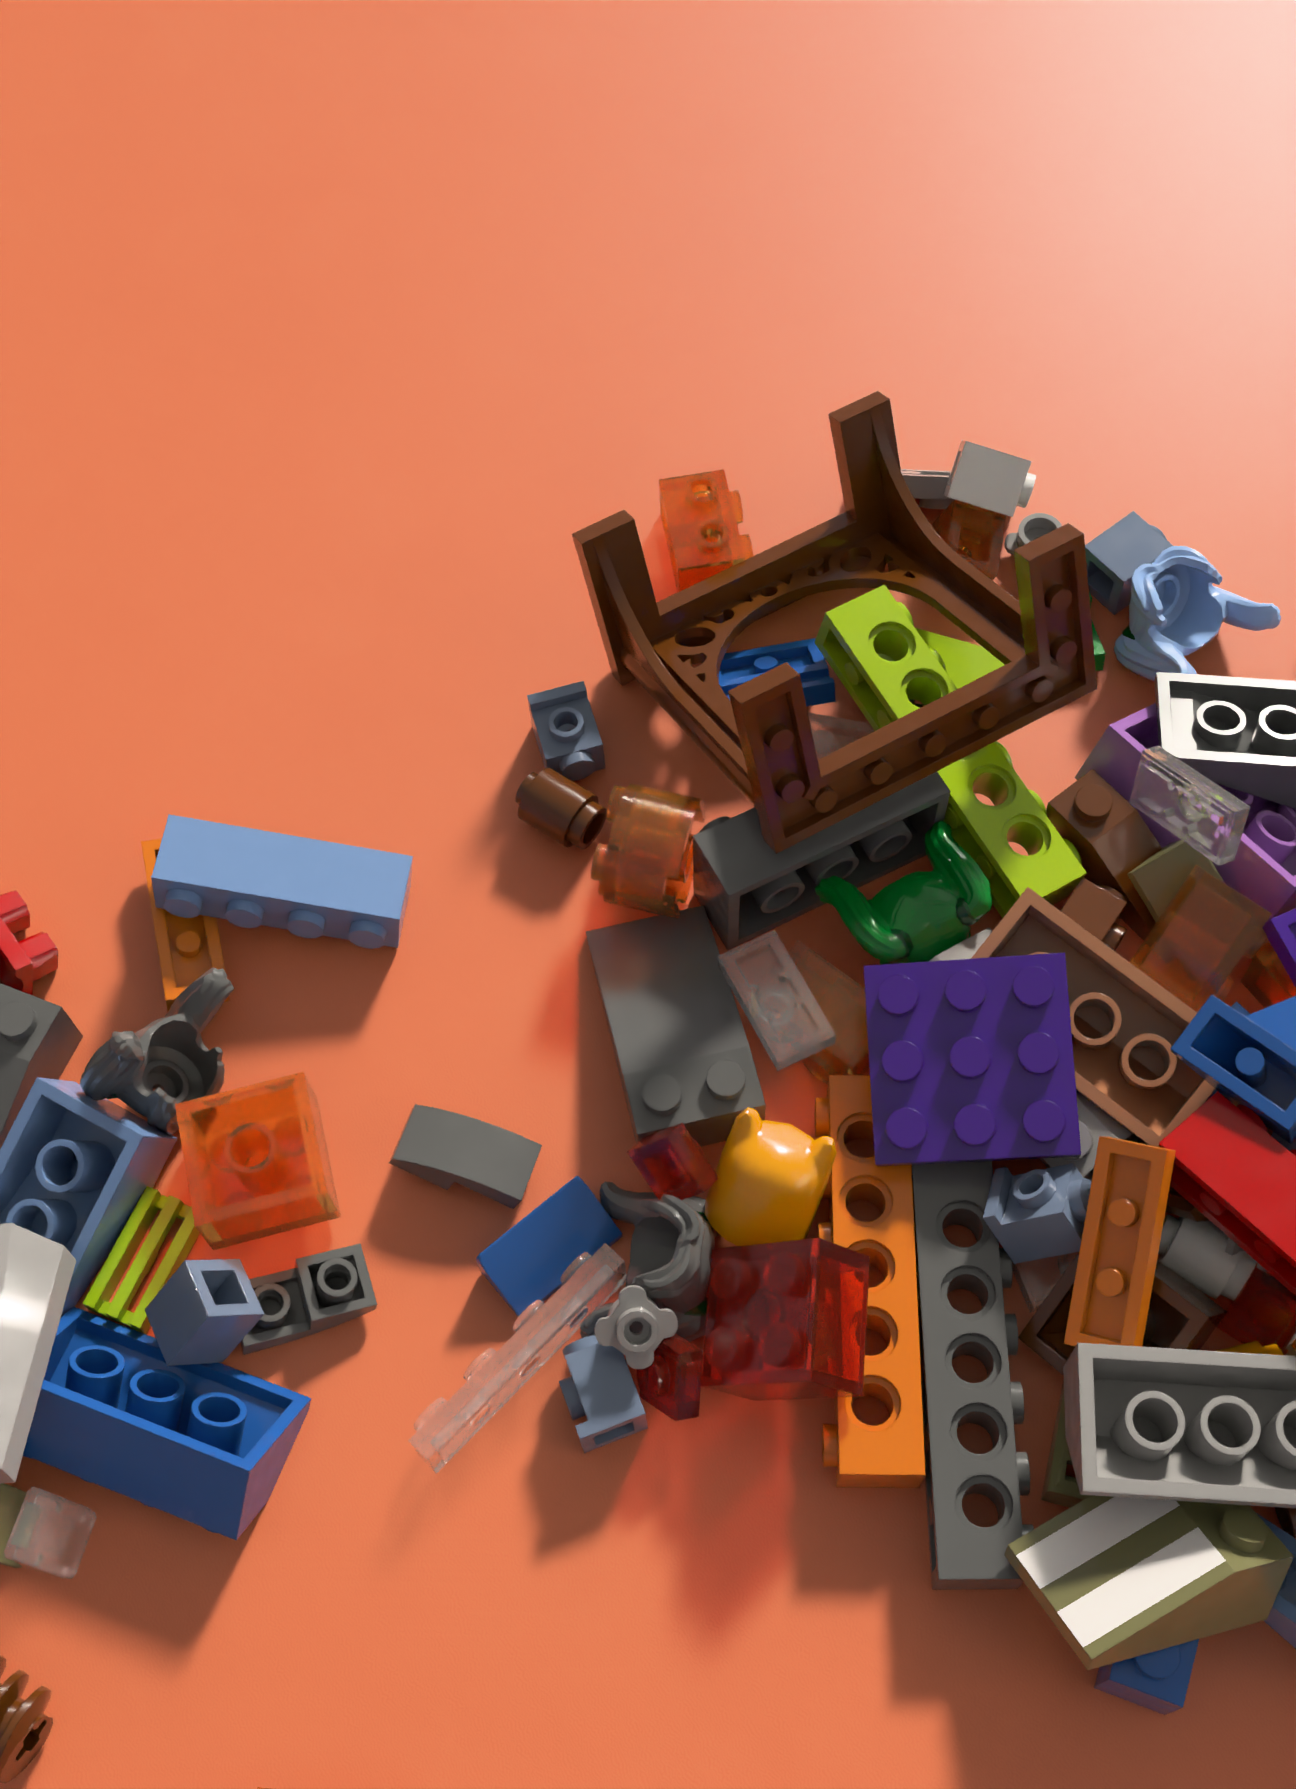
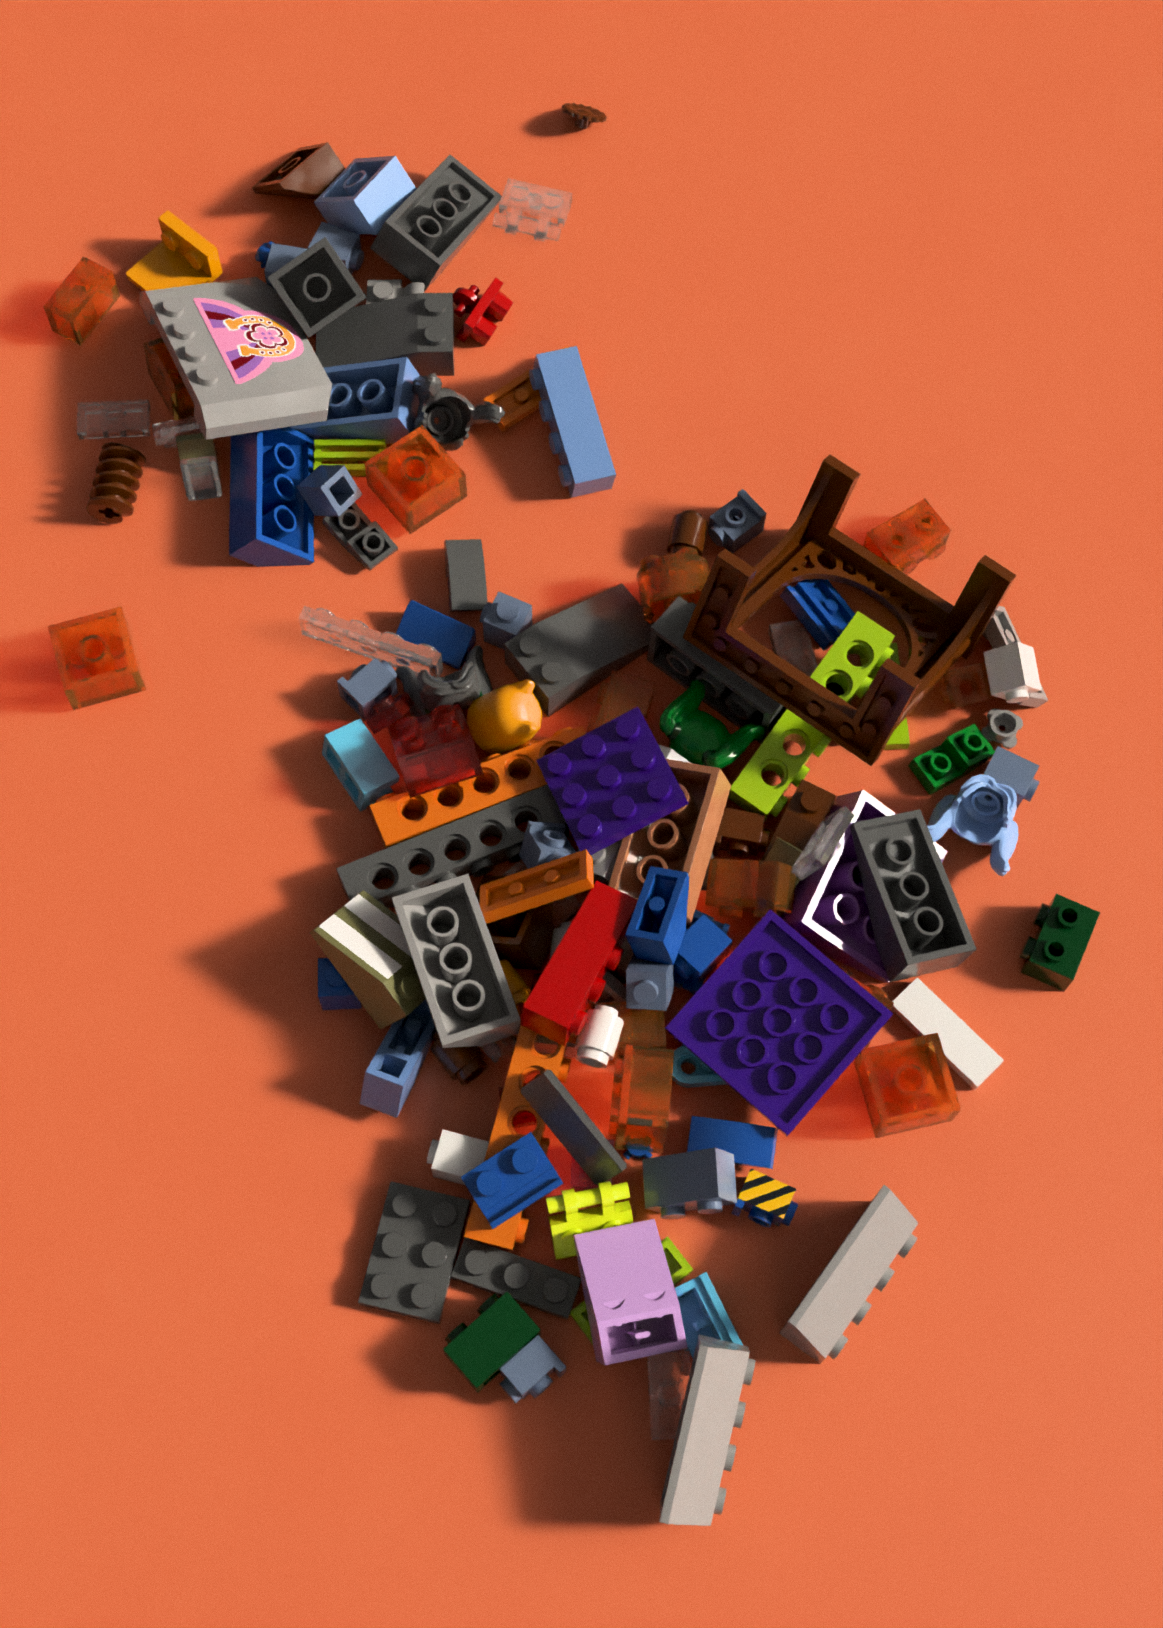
camera: 60 degrees right, 5 degrees up
(585, 1122) = (505, 619): none -> sand blue brick
(631, 1307) = (408, 683): light grey plate -> none
(673, 1163) = (496, 666): clear red plate -> none
(739, 1465) = (359, 763): none -> medium azure hinge
(776, 1000) = (609, 679): clear plate -> none

